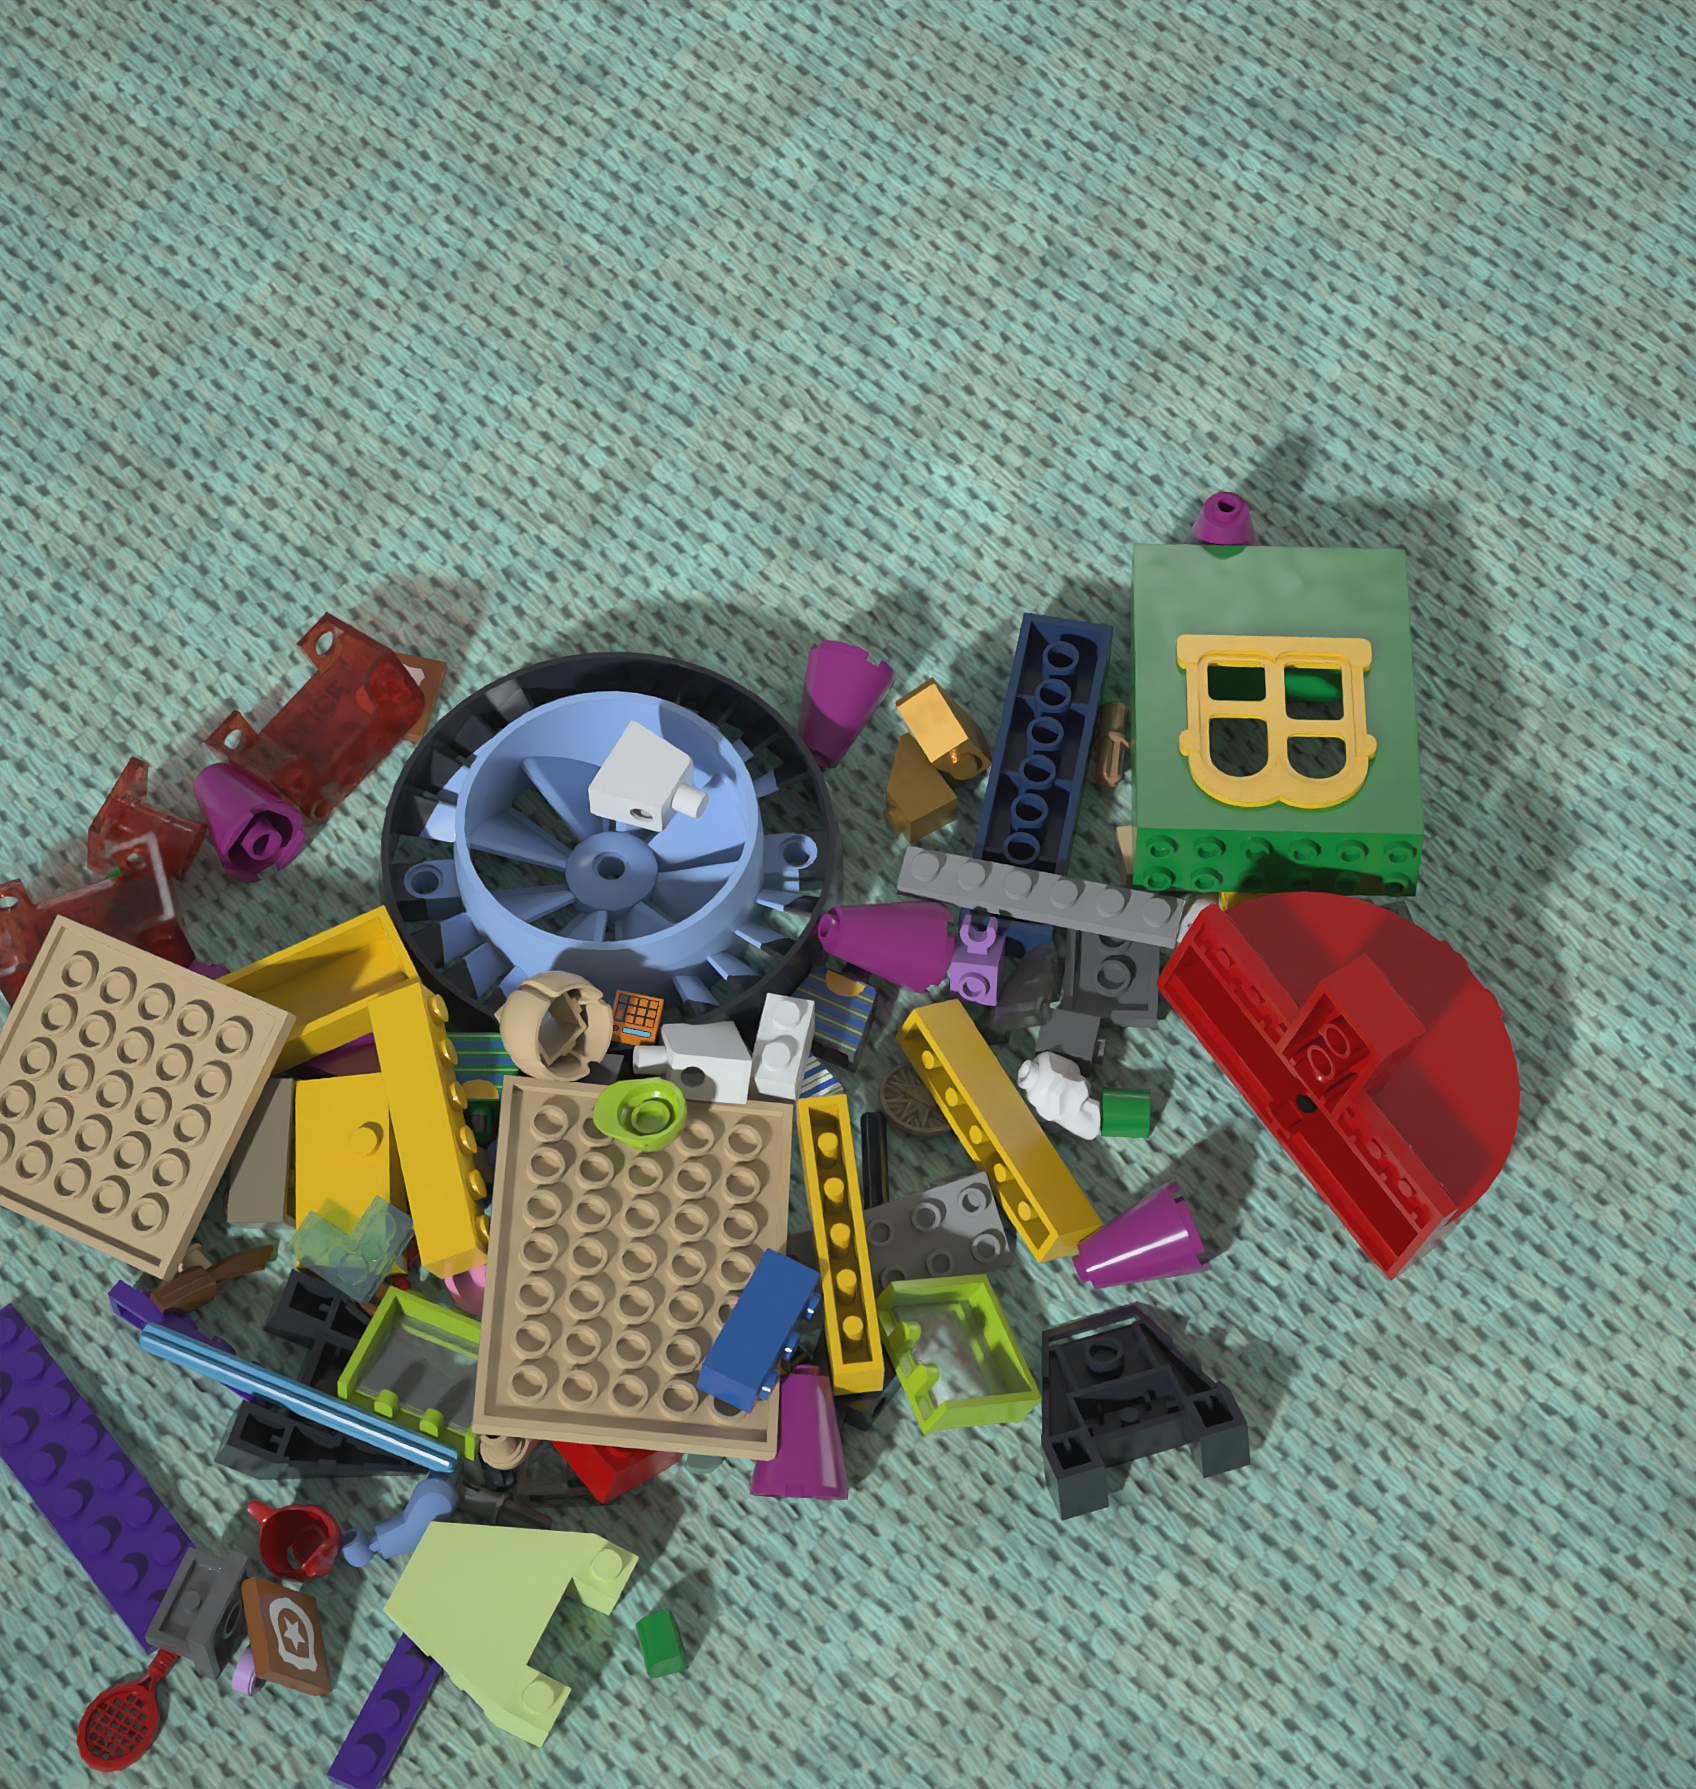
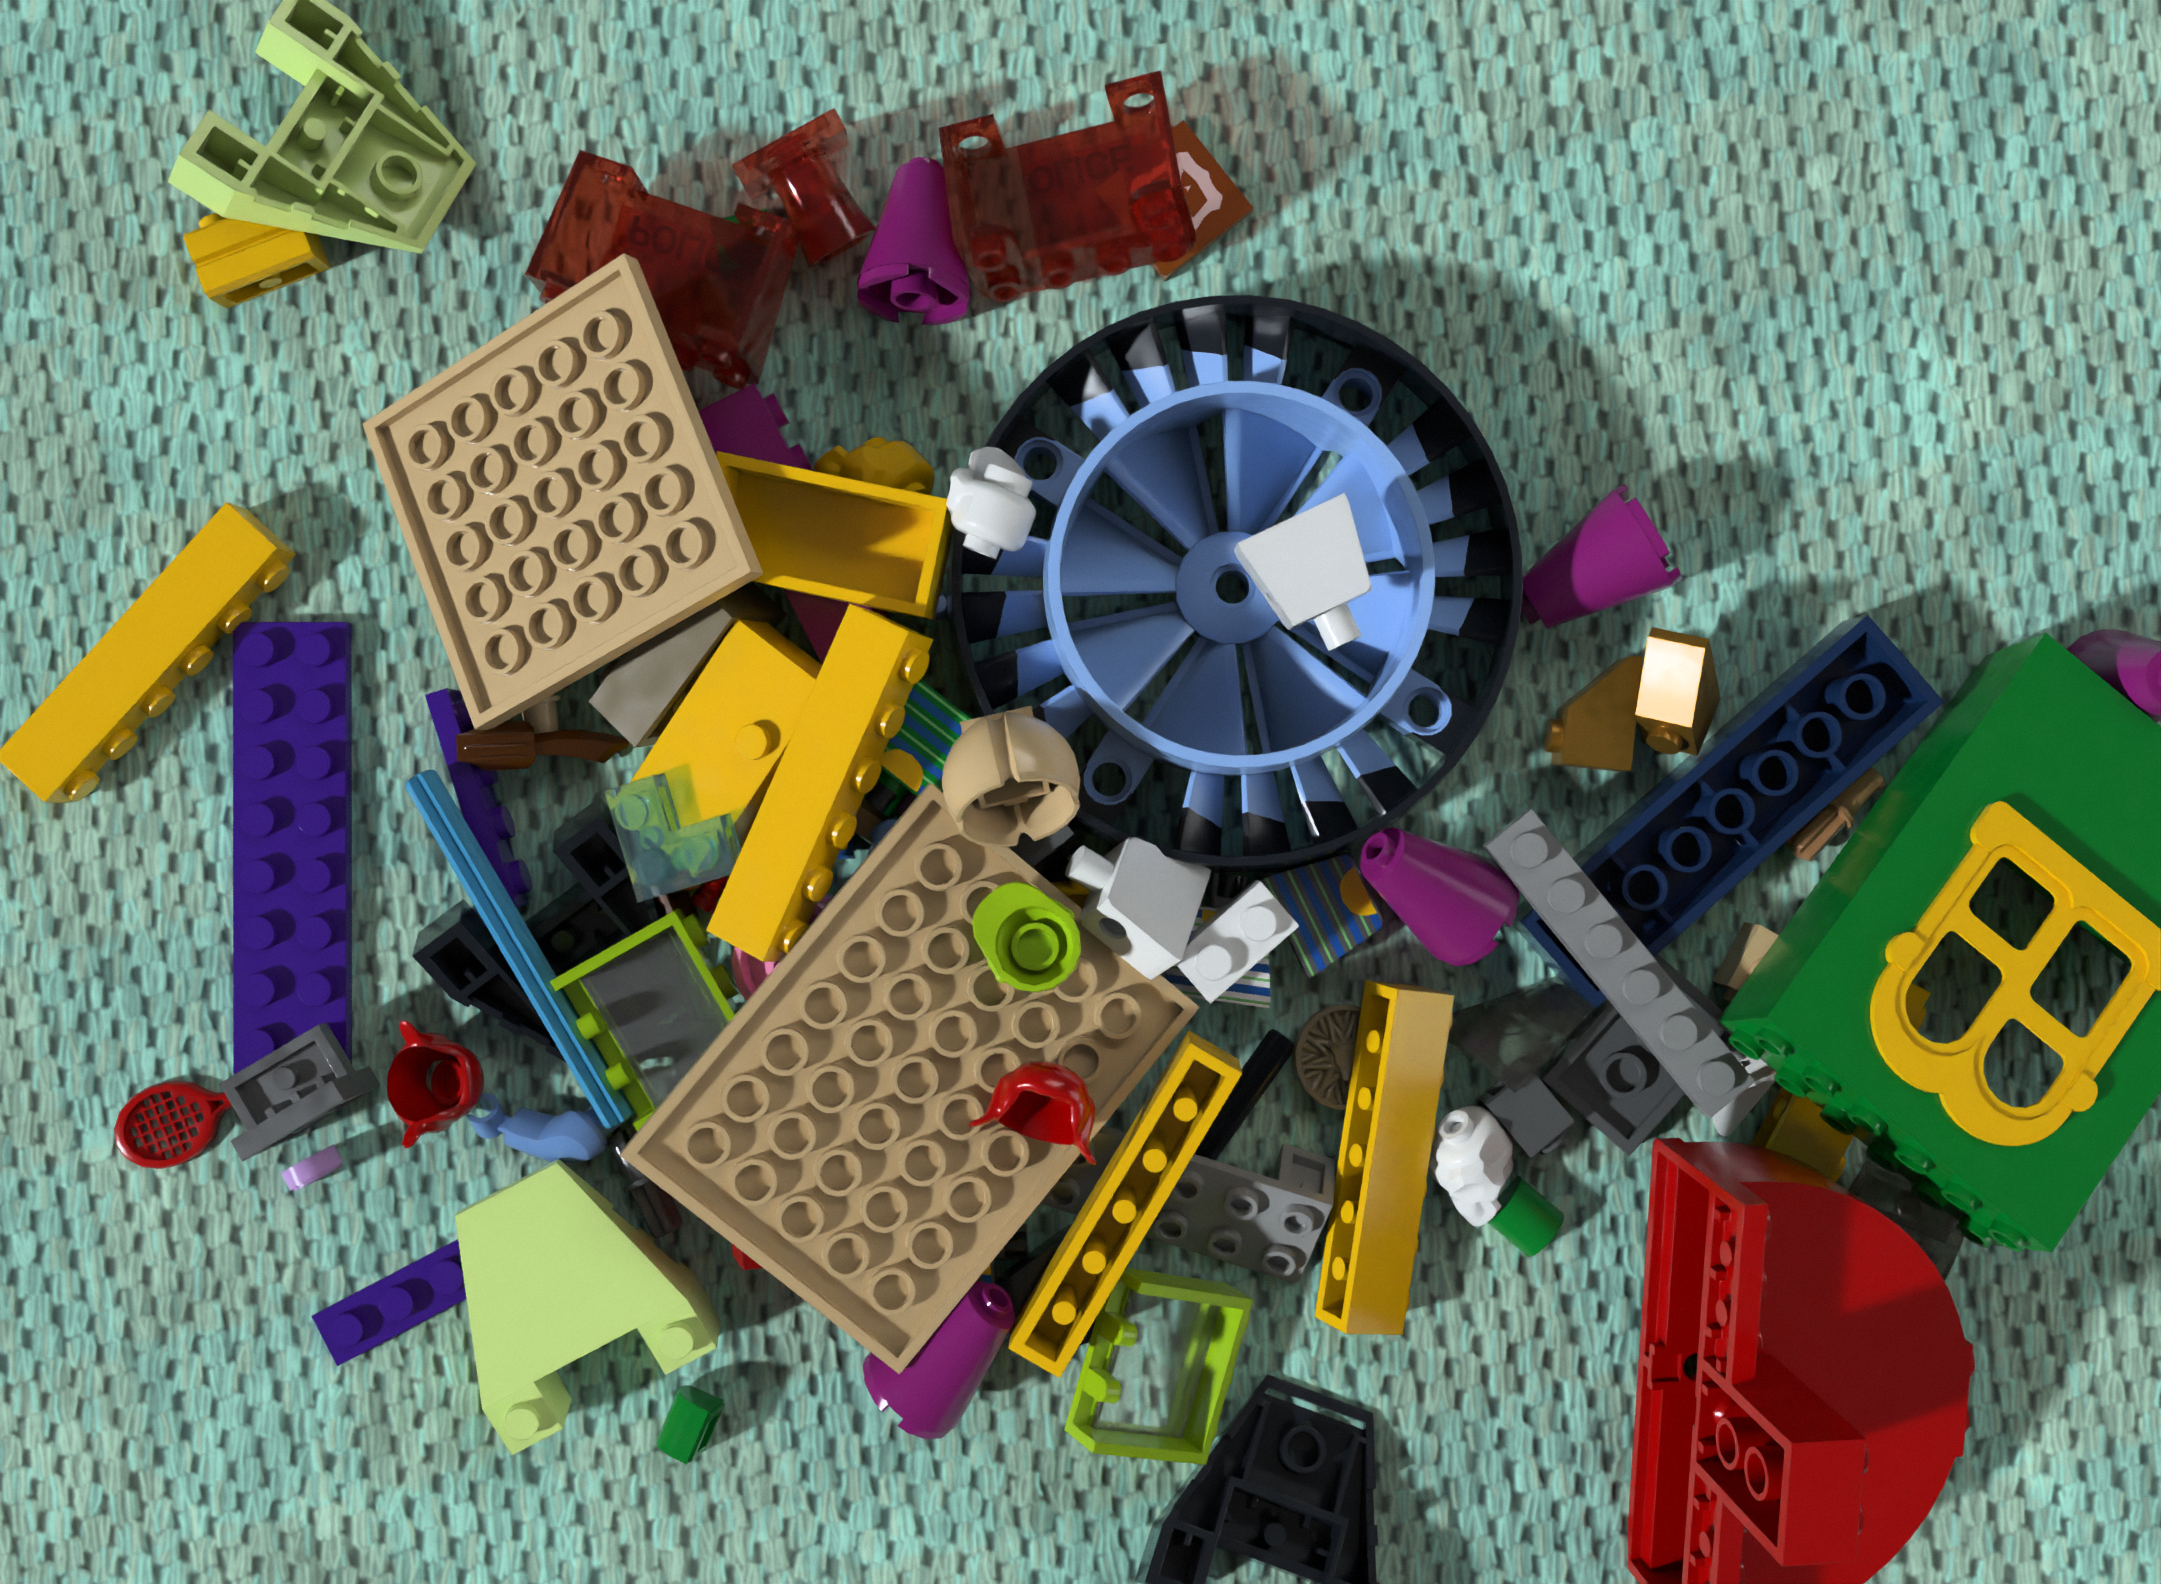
camera: 40 degrees right, 30 degrees up
(285, 1636) = (348, 1175): dark orange tile -> none
(415, 888) = (991, 502): none -> white head
(636, 1018) = (1110, 812): orange tile -> none
(738, 1192) = (1055, 1113): none -> red hair
(760, 1332) = (969, 1255): blue brick -> none
(978, 964) = (1503, 976): medium lavender brick -> none
(1143, 1243) = (1428, 1381): magenta cone -> none

